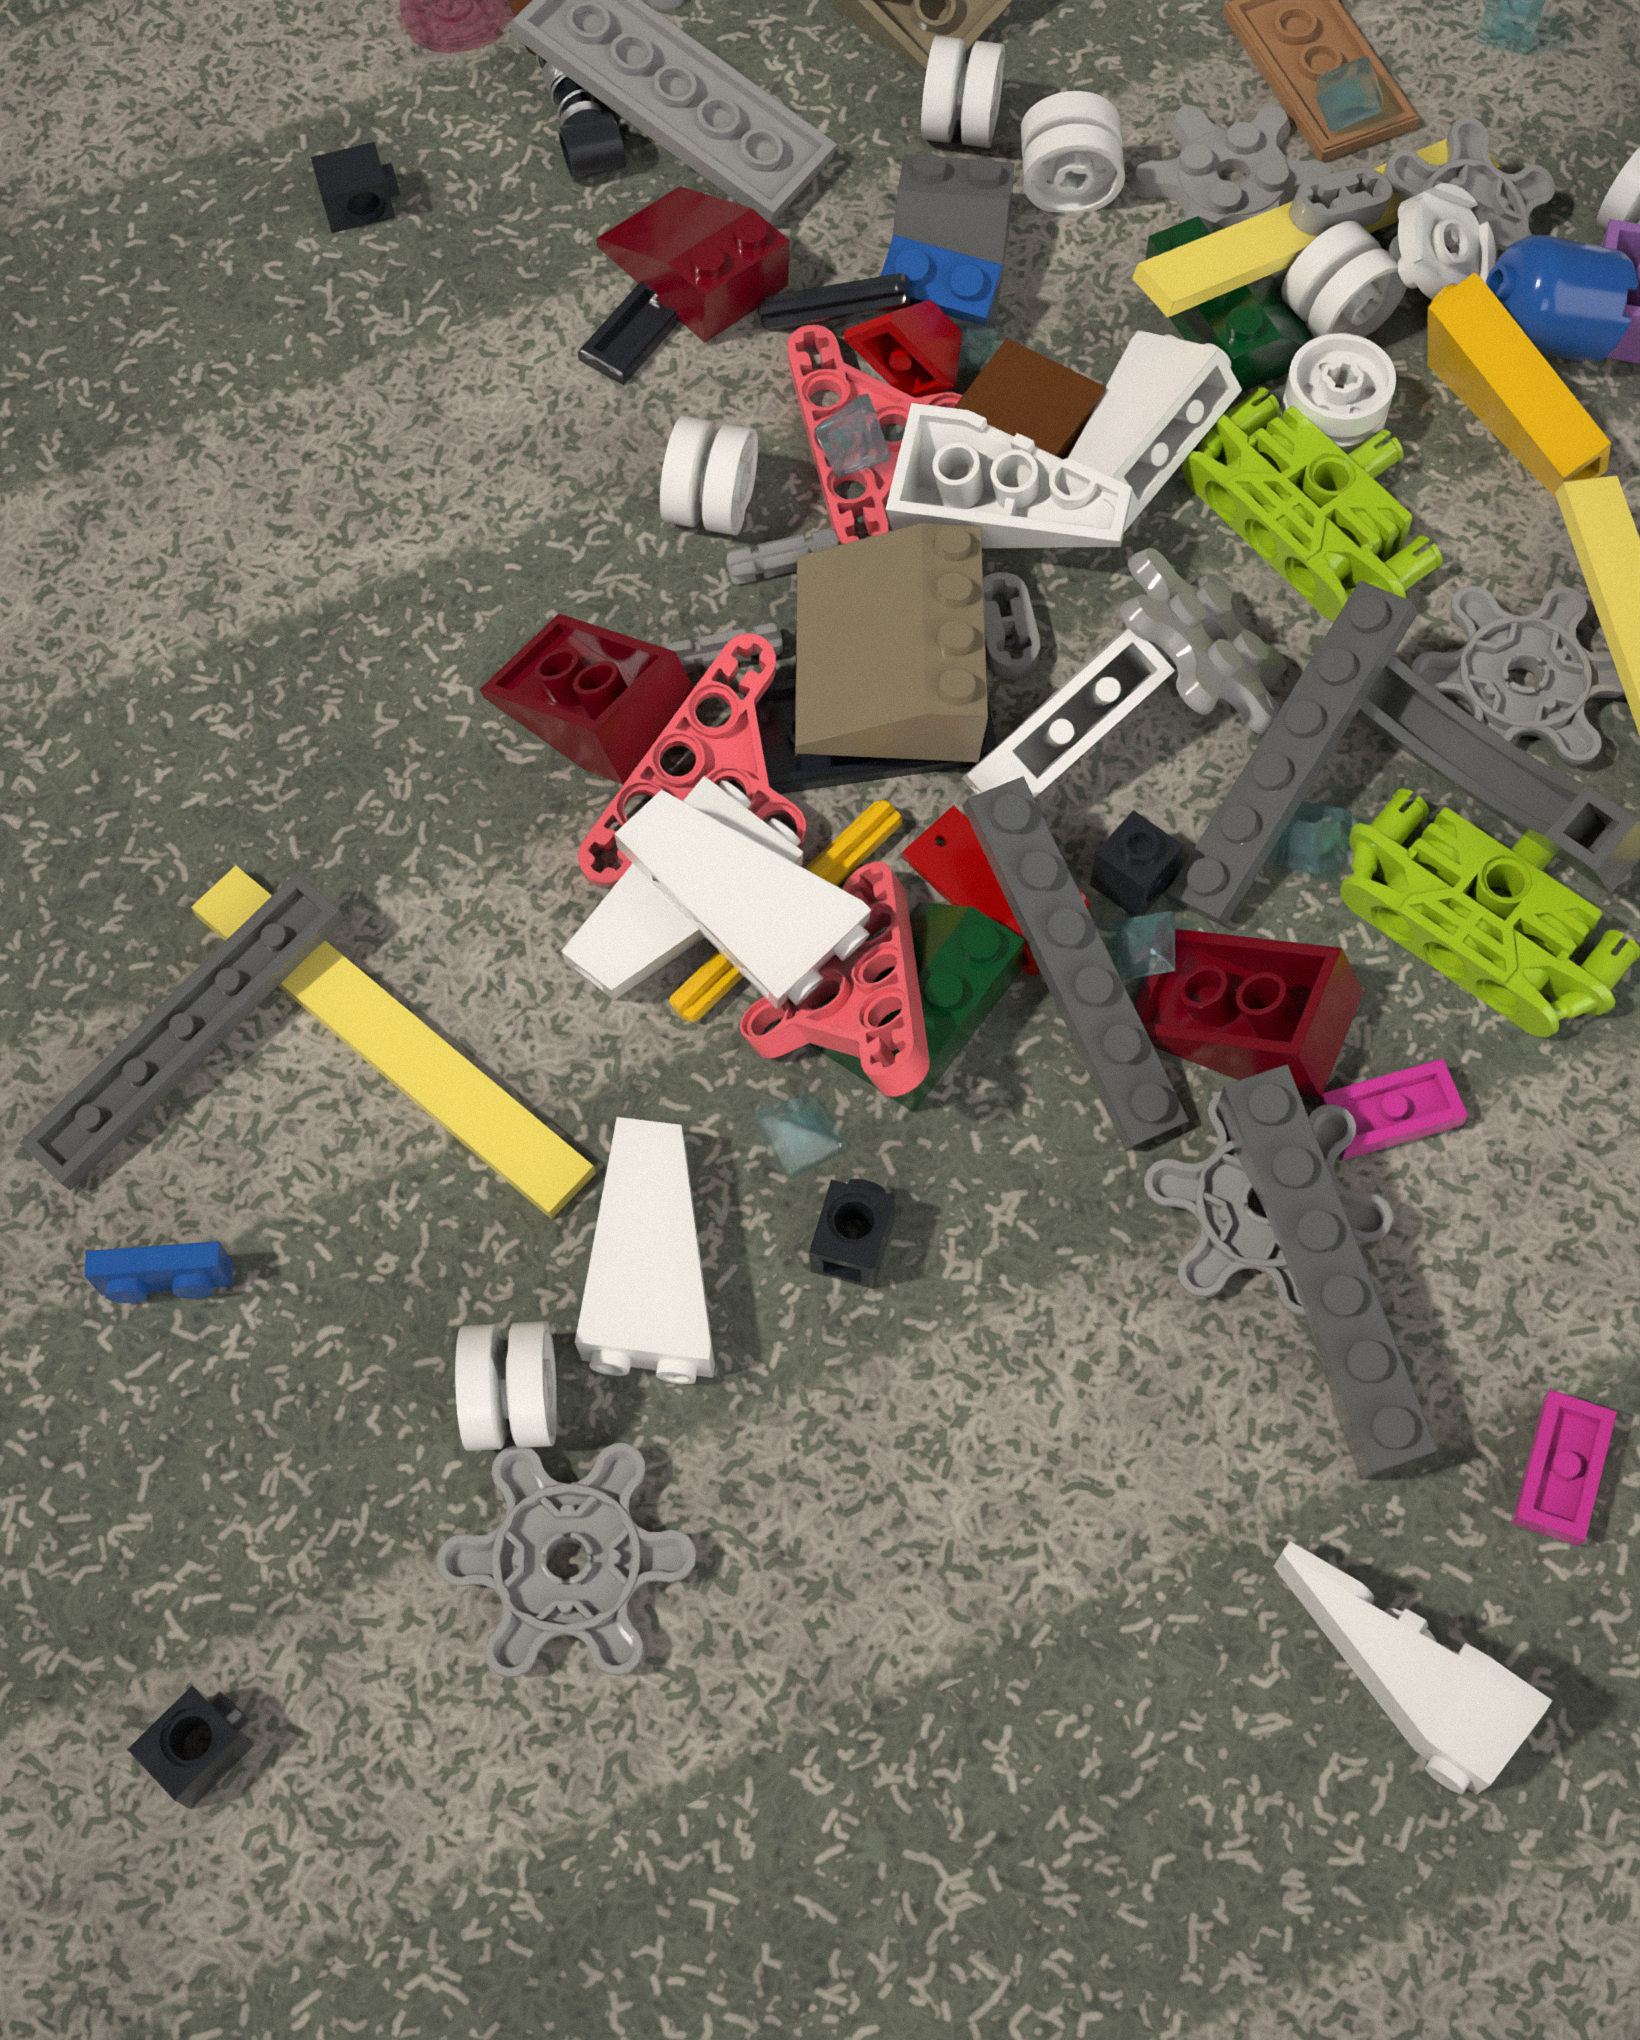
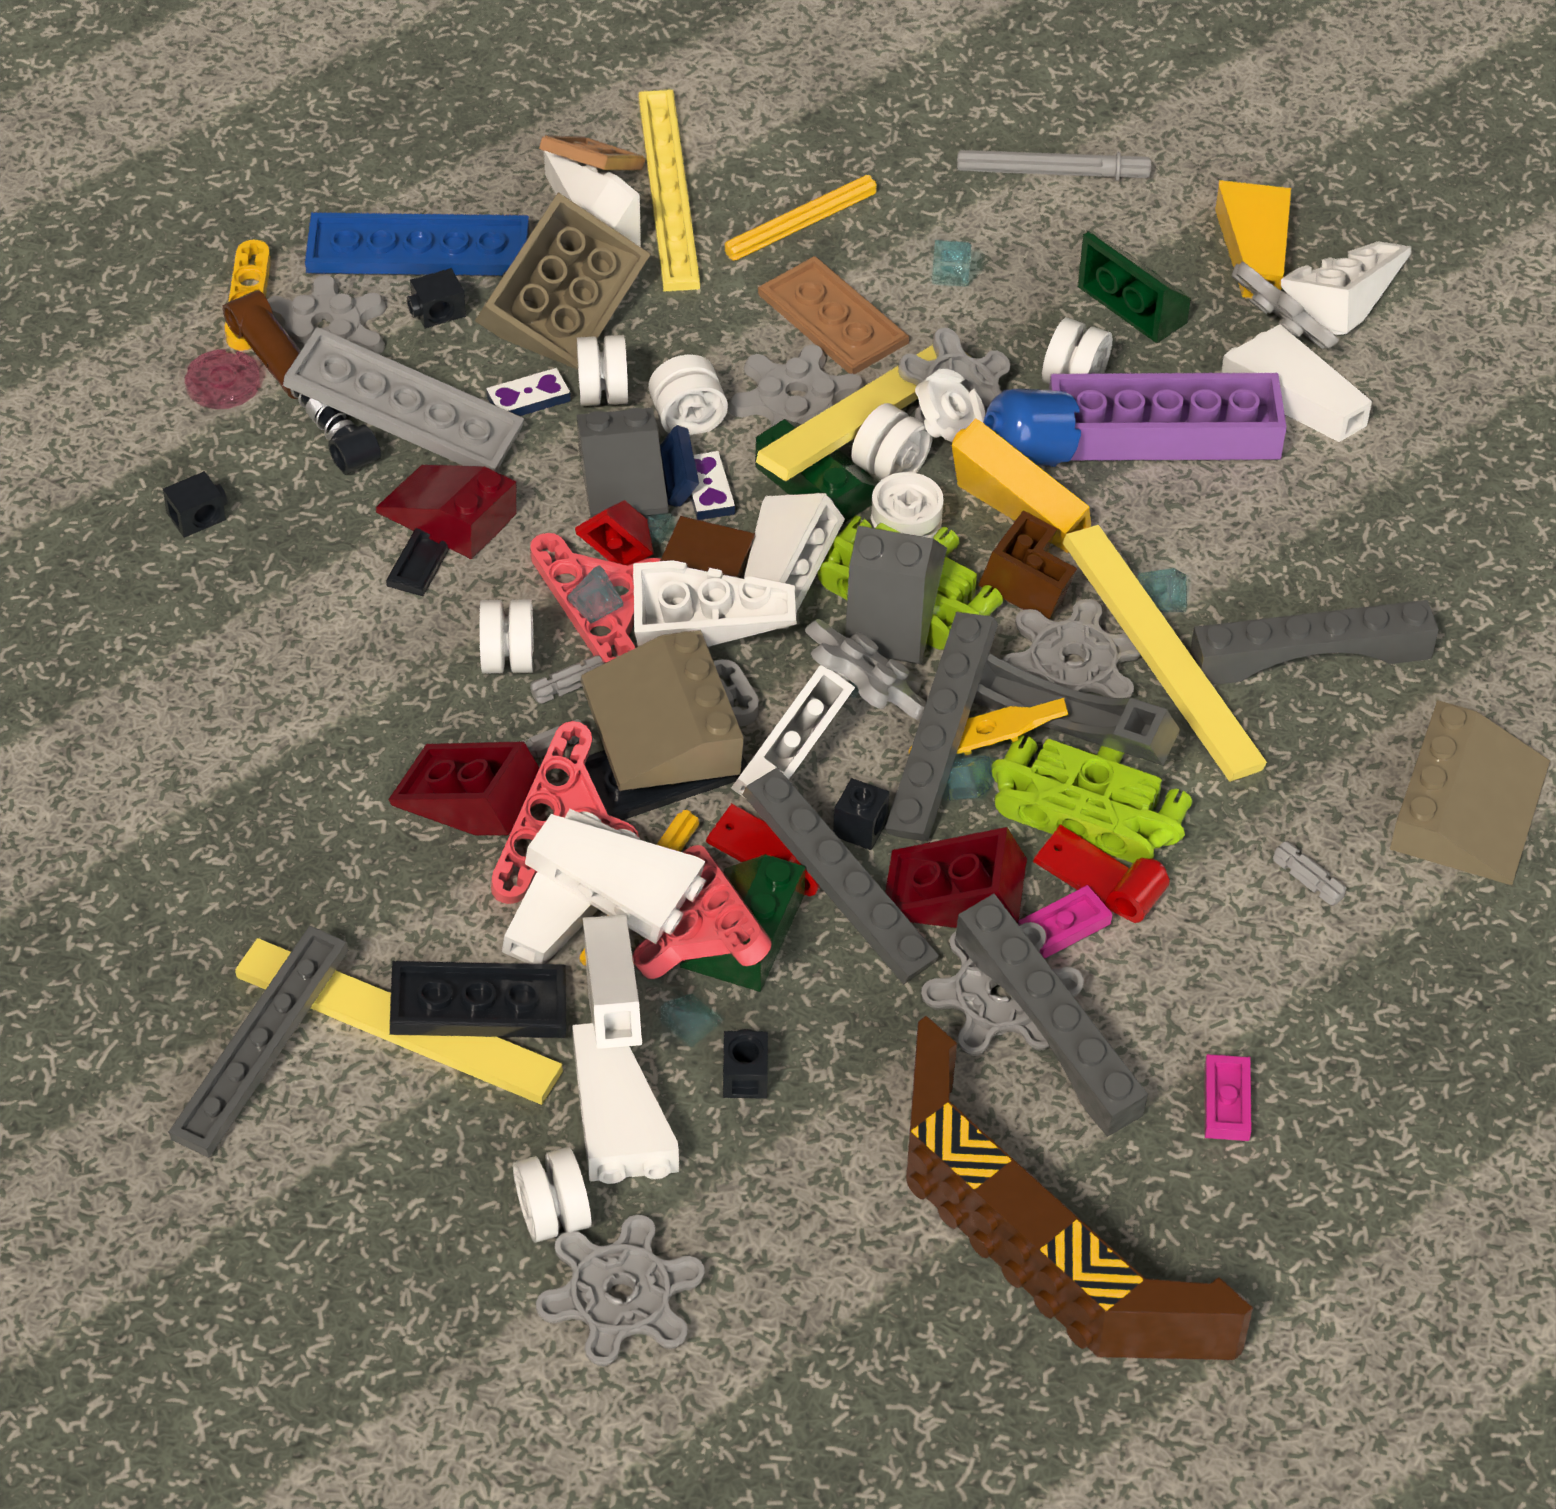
camera: 20 degrees left, 15 degrees down
(162, 1745) = (411, 1468): black brick -> none
(184, 1269) = (292, 1184): blue plate -> none
(505, 1035) = (478, 999): none -> black tile
(680, 1077) = (611, 982): none -> white slope
(836, 301) = (557, 515): black axle -> none
(858, 107) = (530, 393): none -> tile
(953, 281) = (611, 485): blue plate -> none
(1030, 258) = (678, 466): none -> dark blue tile
(1066, 295) = (712, 495): none -> tile
(1144, 945) = (881, 860): clear light blue slope -> none
(1201, 1653) = (1048, 1246): none -> reddish brown slope
(1278, 523) = (893, 591): none -> dark grey slope
(1340, 197) = (874, 390): light grey beam -> none
(1349, 94) = (859, 328): clear light blue slope -> none
(1392, 770) = (1007, 724): none -> yellow piece
(1447, 1704) = (1187, 1230): white wedge -> none
(1488, 527) = (1025, 569): none -> reddish brown brick
(1488, 1066) = (1122, 889): none -> red door

